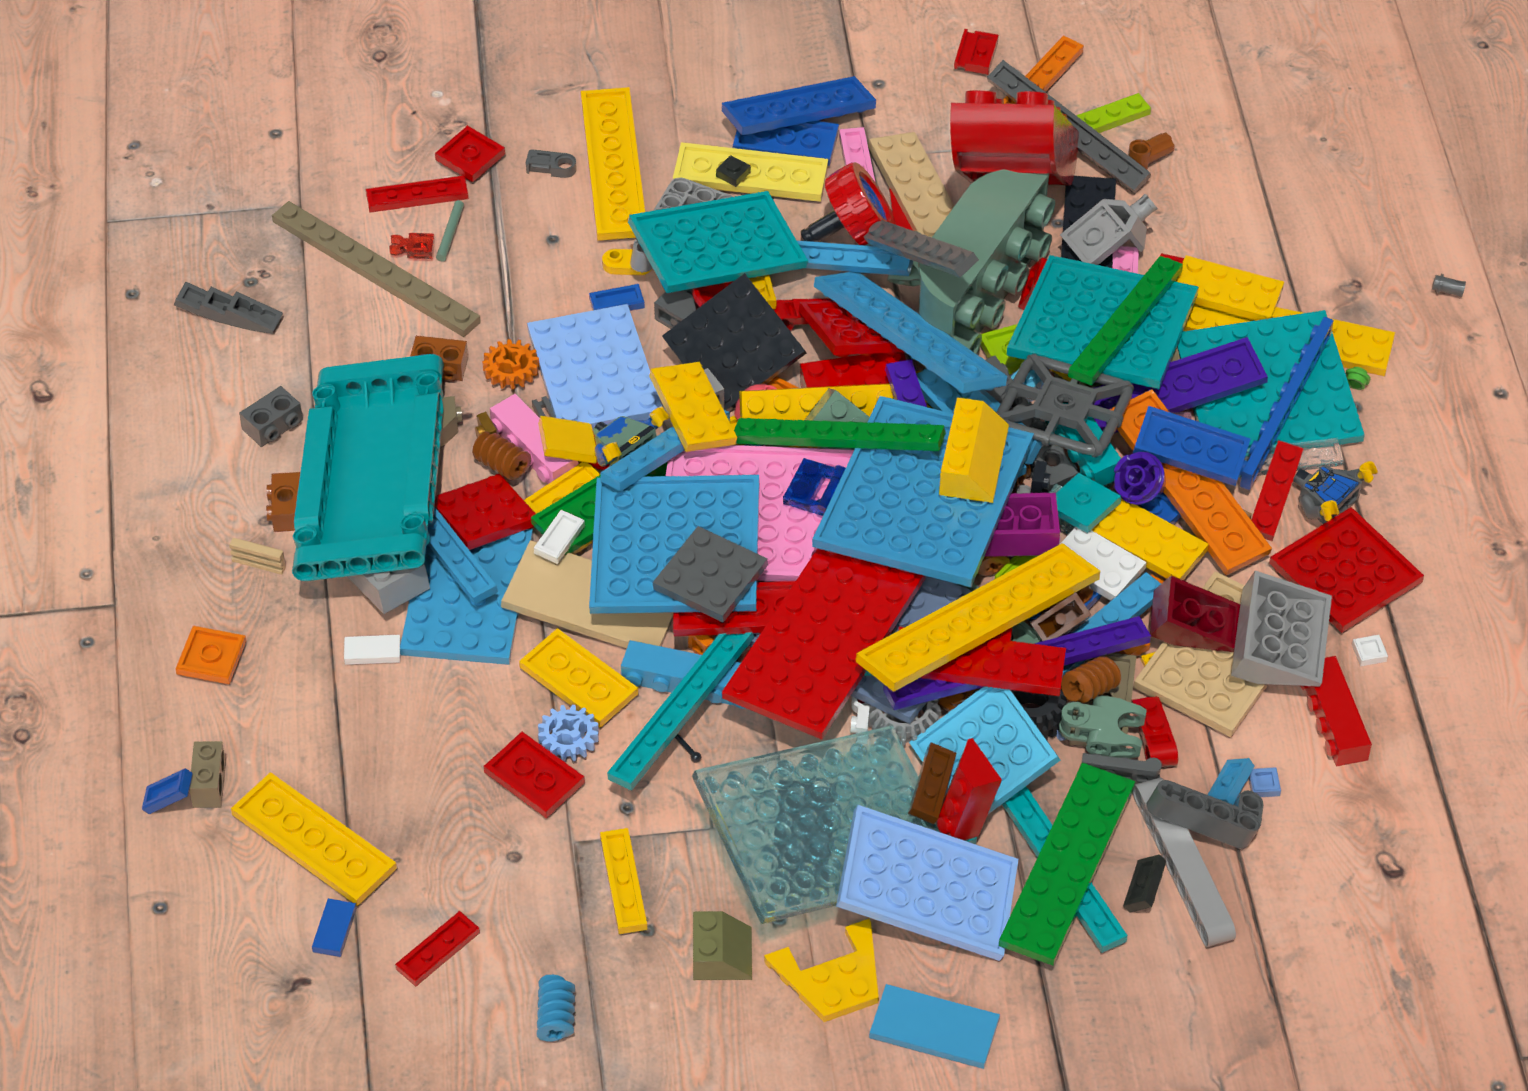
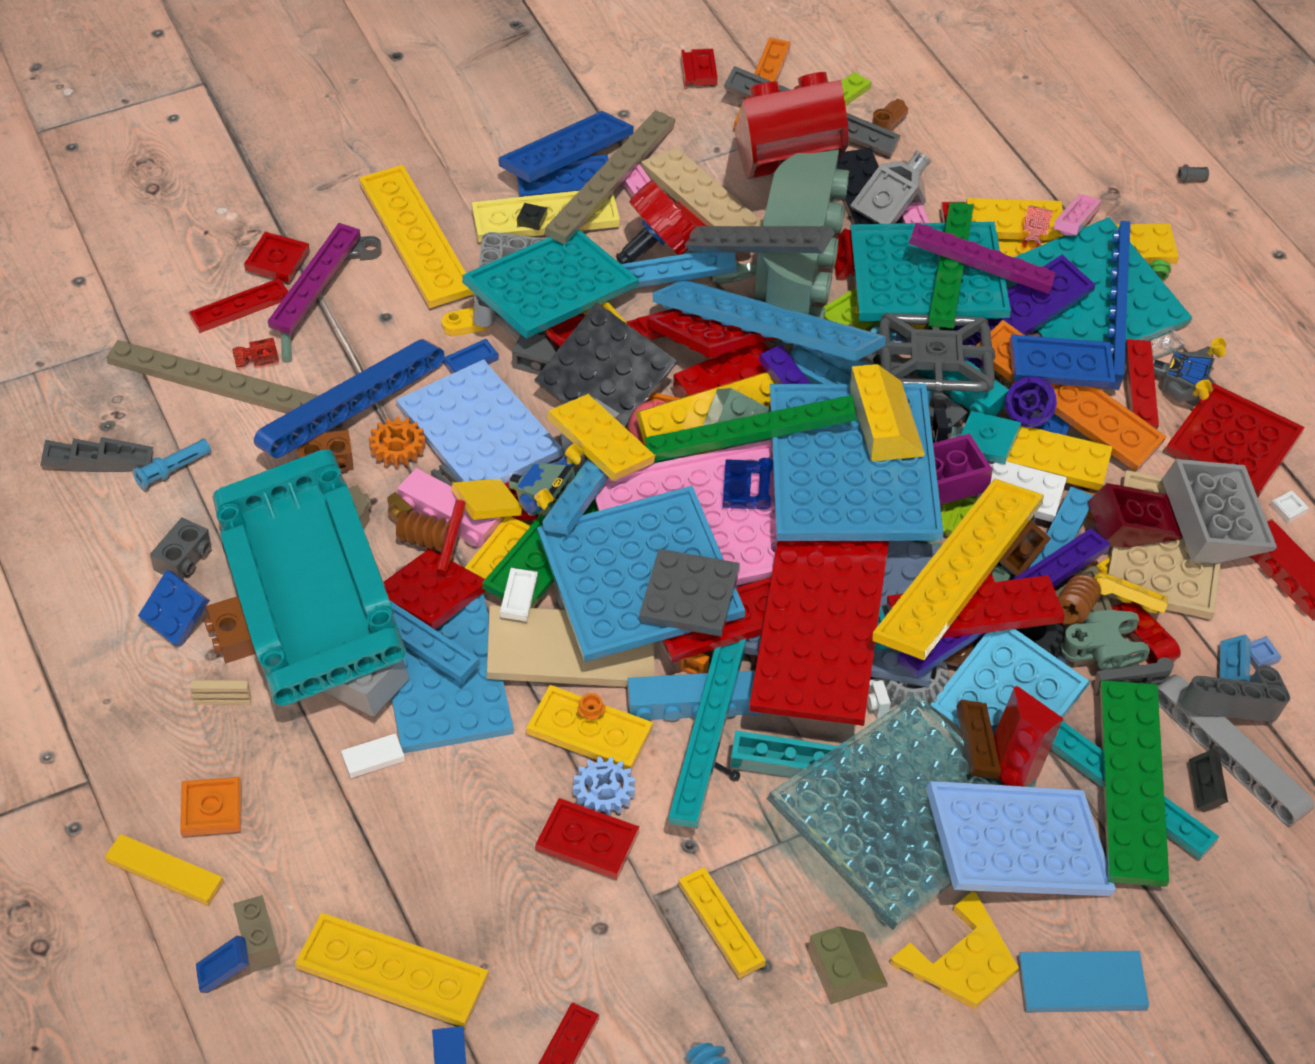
camera: 20 degrees left, 0 degrees up
(150, 698) = (164, 869): none -> yellow tile
(243, 468) = (173, 608): none -> blue plate
(282, 334) = (161, 468): none -> dark azure pin
(480, 310) = (348, 398): none -> blue beam
(494, 184) = (314, 278): none -> magenta plate
(517, 467) = (451, 536): none -> red bar
(584, 651) = (591, 700): none -> orange plate
(728, 742) = (774, 753): none -> teal brick
(827, 147) = (609, 177): none -> dark tan plate
(1154, 688) = (1128, 592): none -> yellow hinge
(1156, 321) = (982, 257): none -> magenta plate
(1241, 299) = (1038, 223): none -> clear red plate
(1293, 299) = (1077, 215): none -> bright pink plate

